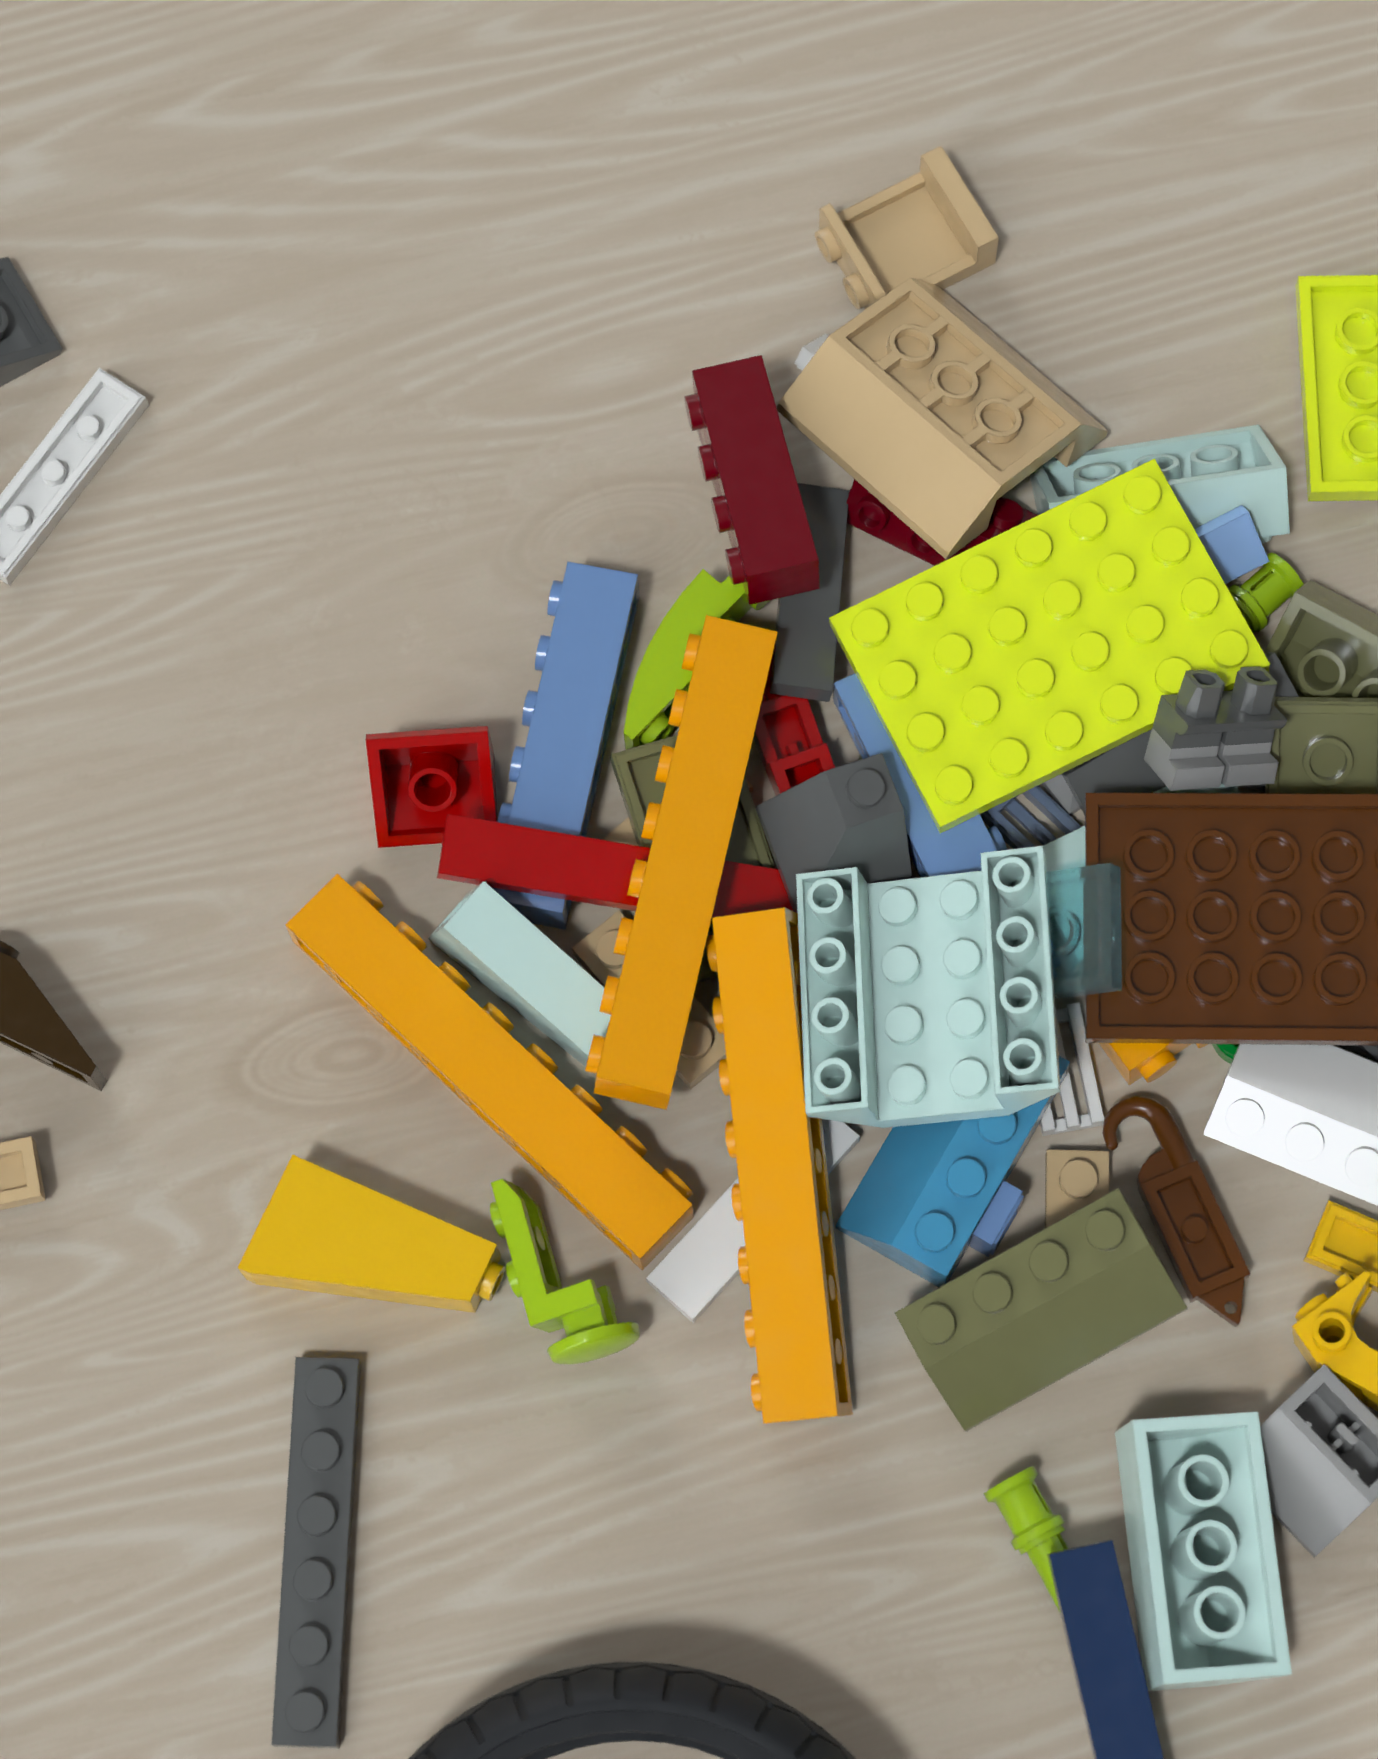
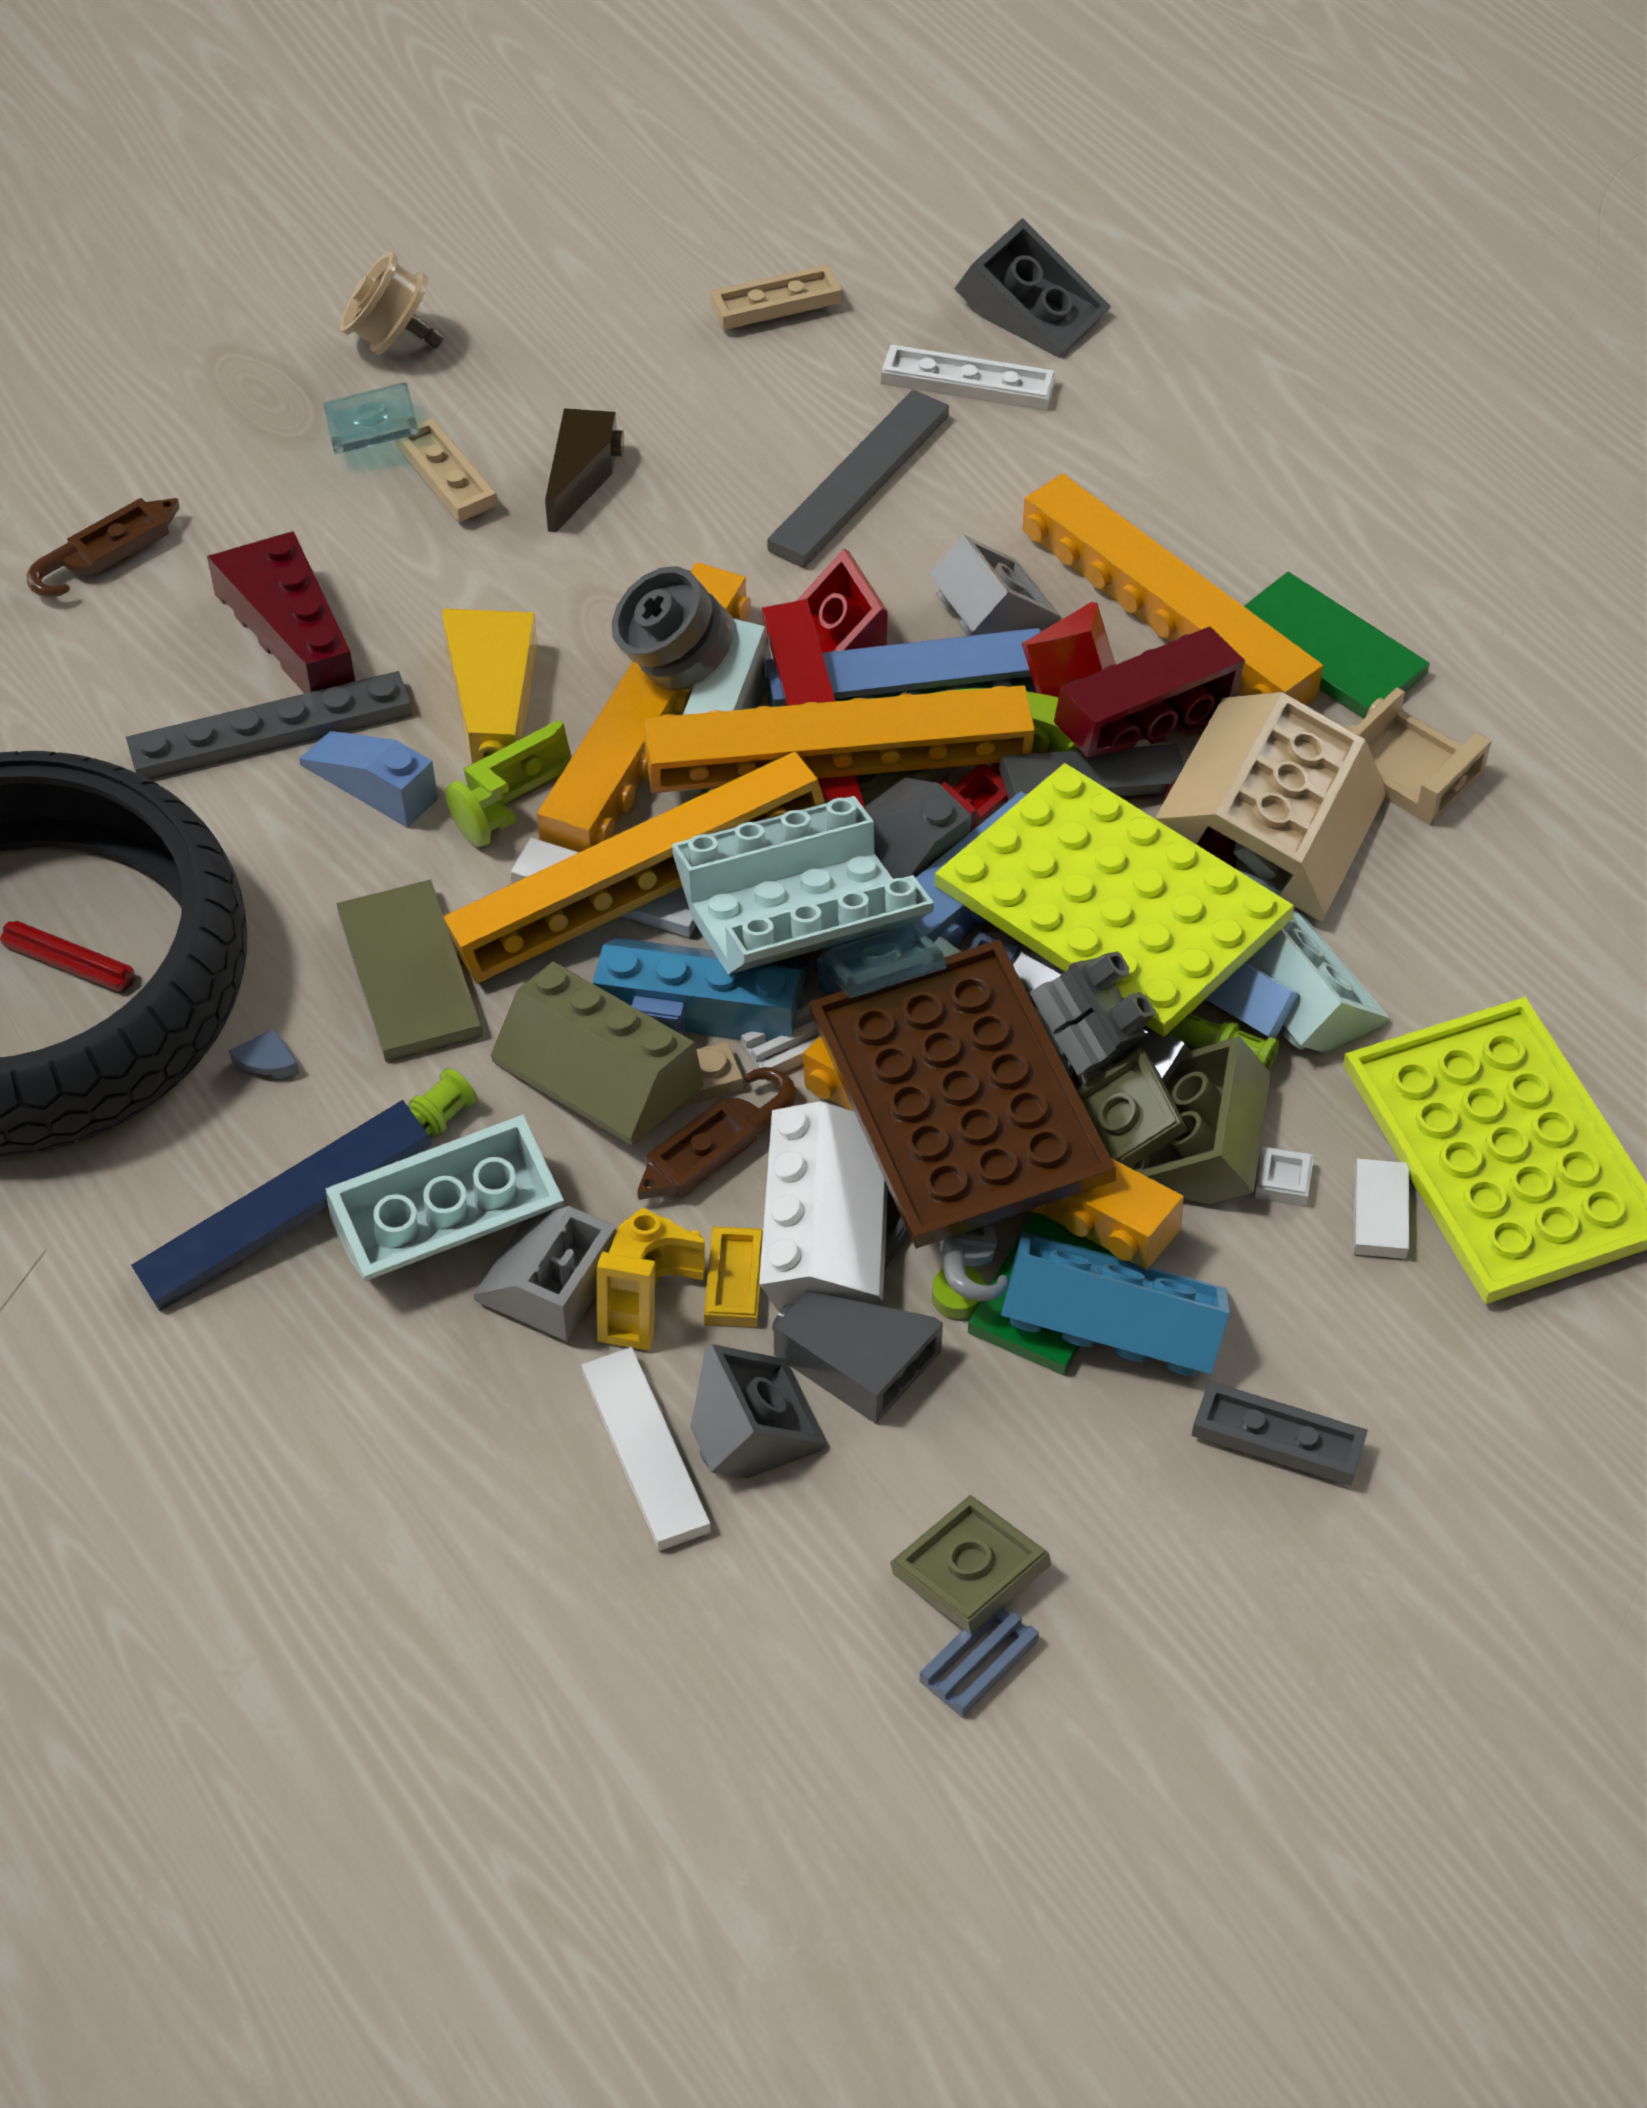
camera: 65 degrees right, 20 degrees down
(132, 1471) = (284, 606): none -> dark red wedge
(180, 674) = (857, 478): none -> dark grey tile
(431, 967) = (672, 627): none -> dark grey wheel
(455, 1444) = (376, 772): none -> medium blue slope
(463, 593) = (990, 590): none -> light grey slope
(546, 395) = (1162, 587): none -> light orange brick
(650, 545) = (1068, 650): none -> red slope
(690, 252) = (1355, 655): none -> green tile
(794, 1490) = (409, 970): none -> olive tile
(871, 1703) = (265, 1056): none -> sand blue tile

